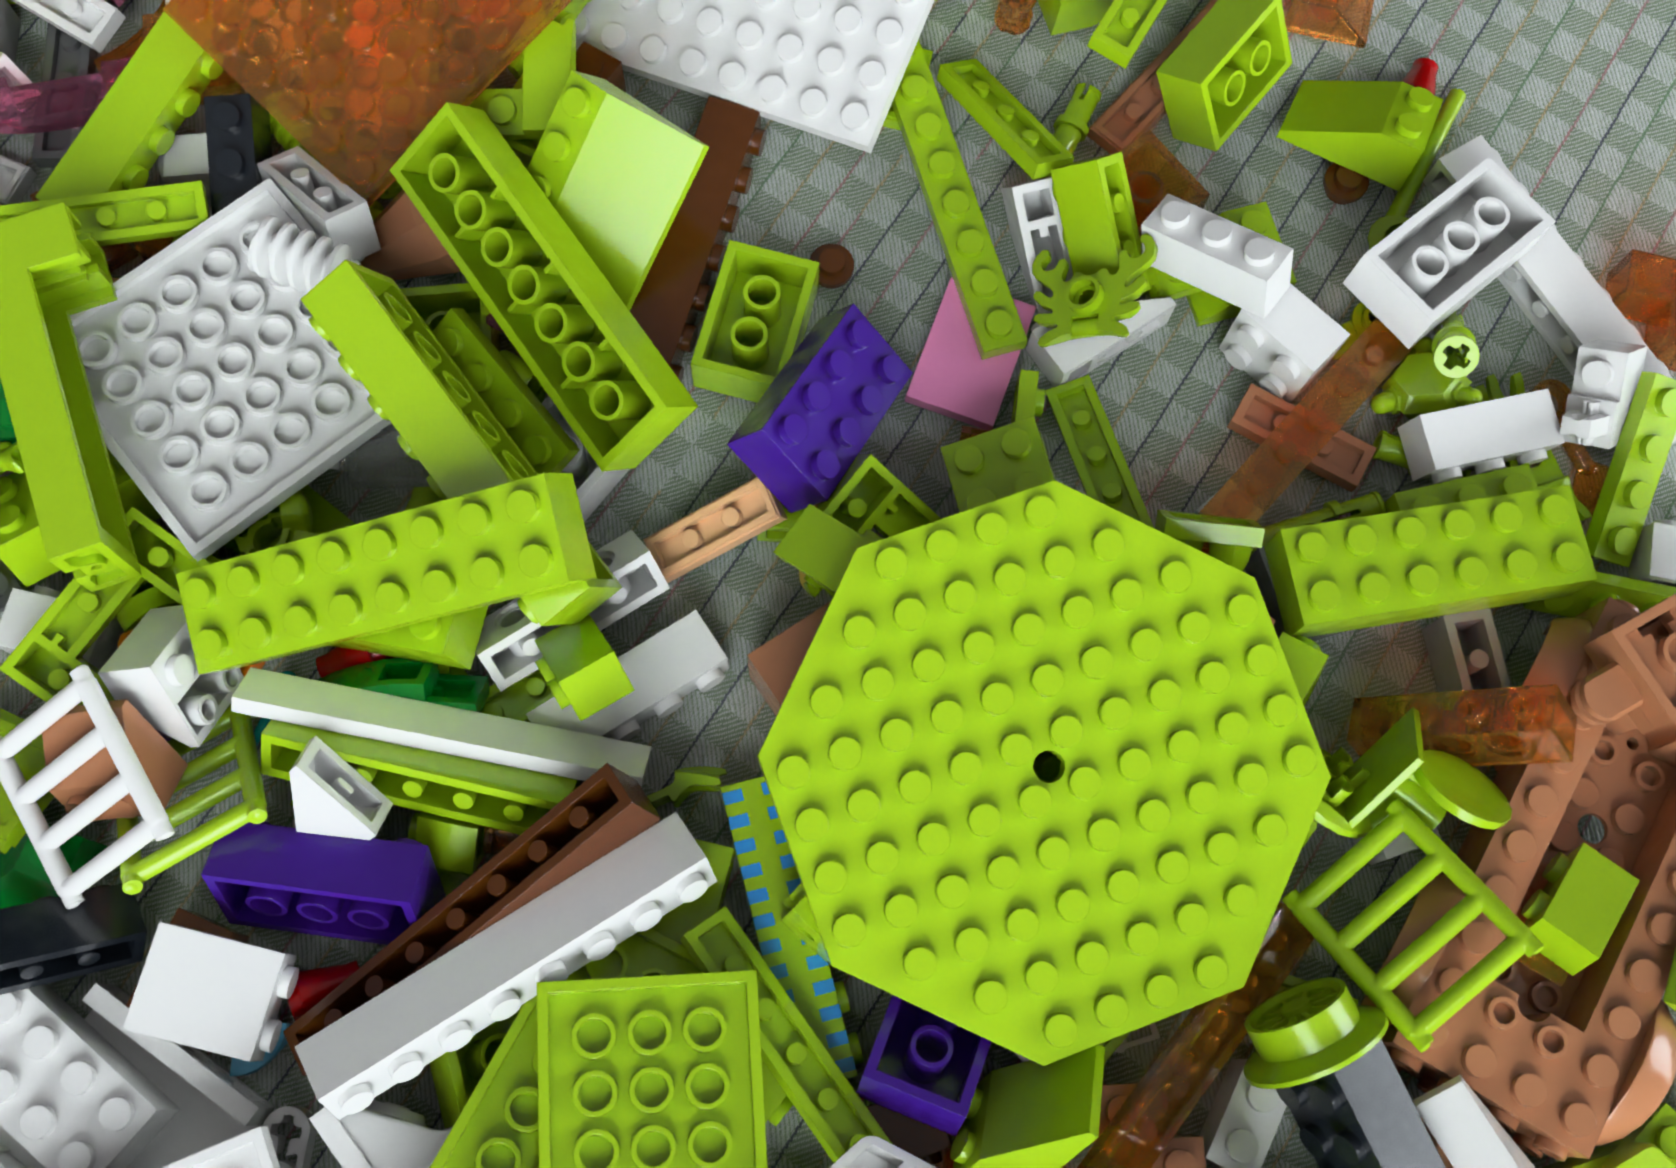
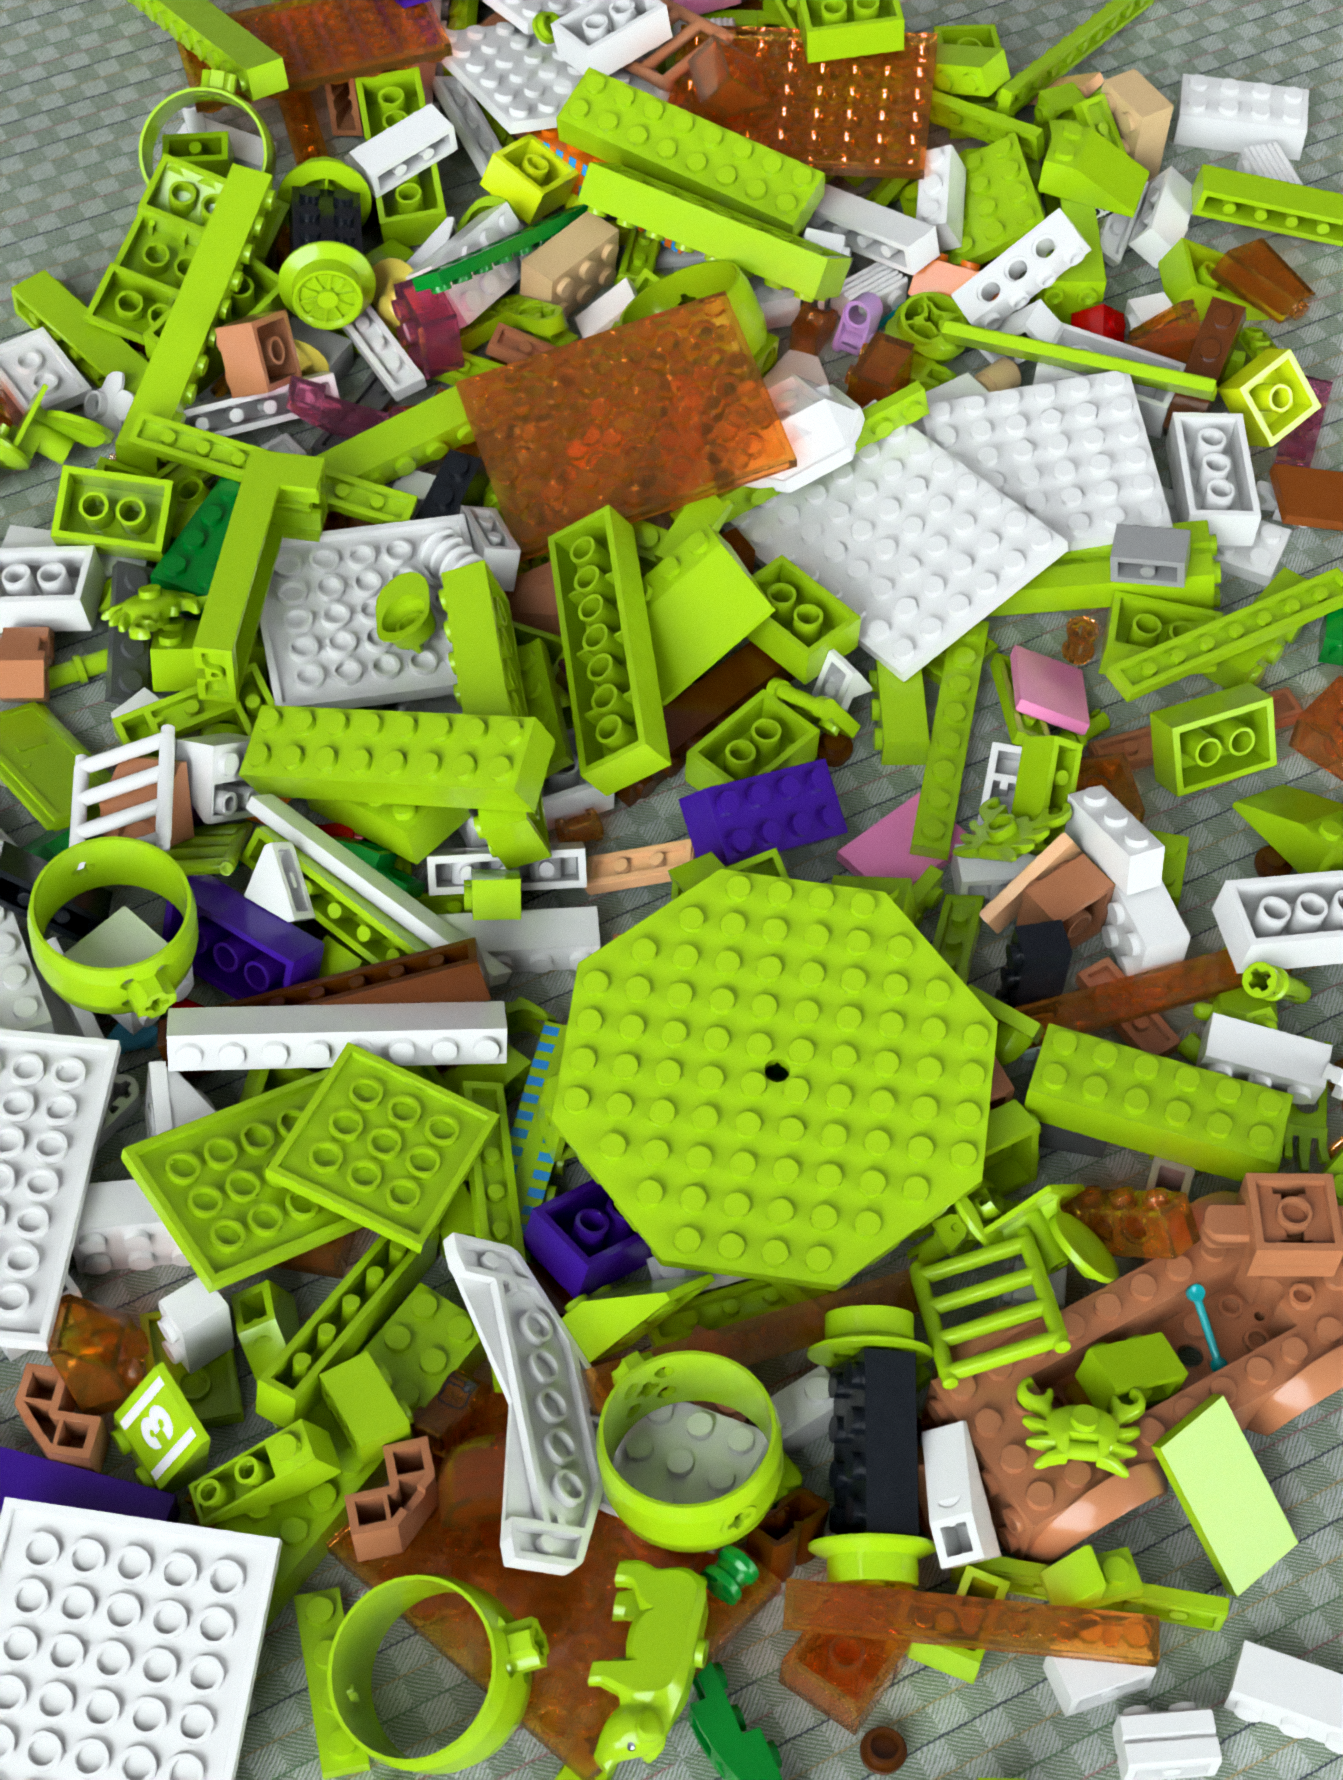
camera: 30 degrees right, 20 degrees down
(257, 1049) = (114, 862): none -> lime cylinder
(278, 356) = (405, 612): none -> lime piece
(616, 510) = (580, 828): none -> clear orange bush
(745, 132) = (805, 621): none -> lime brick
(782, 236) = (820, 710): none -> lime plate
(802, 197) = (840, 680): none -> white slope
(882, 194) = (900, 717): none -> lime brick
(1025, 87) = (1049, 690): none -> bright pink tile
(1140, 343) = (1008, 902): none -> light nougat tile
(1184, 353) = (1072, 893): none -> nougat brick
(1209, 455) = (1035, 964): none -> black brick
(1592, 1033) = (1081, 1430): none -> lime animal
(1595, 778) = (1196, 1294): none -> teal hinge

